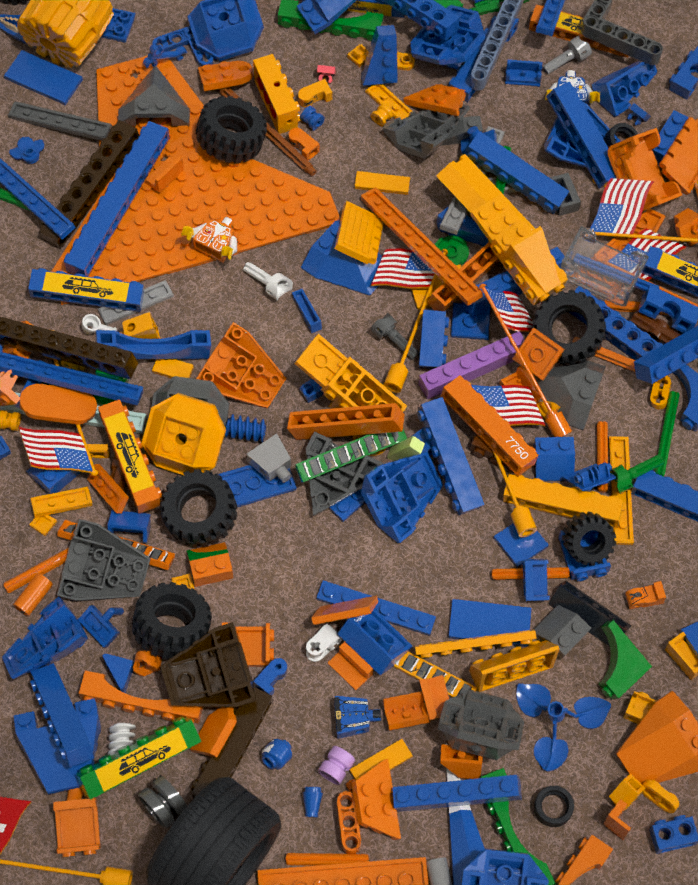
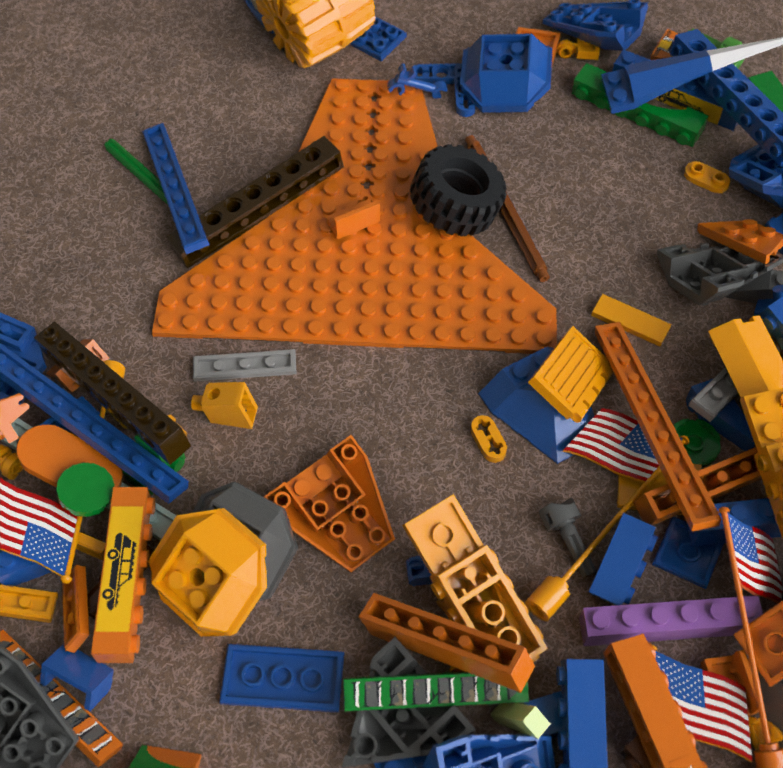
camera: 25 degrees right, 5 degrees down
(27, 150) = (208, 142): blue plate -> none
(43, 77) = (268, 70): blue tile -> none
(59, 121) = (259, 120): dark grey tile -> none
(79, 415) = (85, 489): none -> green tile
(86, 290) = (186, 327): brick -> none
(94, 322) = (176, 367): white bar -> none
(116, 199) = (276, 231): blue brick -> none
(155, 99) = (384, 129): dark grey wedge -> none
(172, 367) = (249, 469): light orange tile -> none
(190, 345) = (275, 444): blue arch -> none
(192, 485) = (155, 664): black tyre -> none
(213, 238) = (376, 316): torso -> none
(225, 74) = (481, 128): orange plate -> none
(245, 428) = (304, 592): blue piece -> none
(271, 459) = (318, 654): light grey torso -> none
(276, 94) = (535, 167): light orange brick -> none
(276, 284) = (433, 404): white piece -> none
(304, 142) = (547, 237): orange leg -> none
(307, 311) = (462, 455): blue piece -> none
(311, 117) = (568, 208): blue wheel -> none
(314, 93) = (584, 182): light orange leg -> none
(322, 291) = (484, 441): none -> light orange beam
(326, 71) = (610, 161): coral tile -> none
(358, 55) = (660, 156): light orange tile -> none
(381, 115) = (662, 234): light orange wheel -> none
(382, 57) = (687, 166): blue wedge -> none
(382, 95) = (677, 221): light orange tile -> none

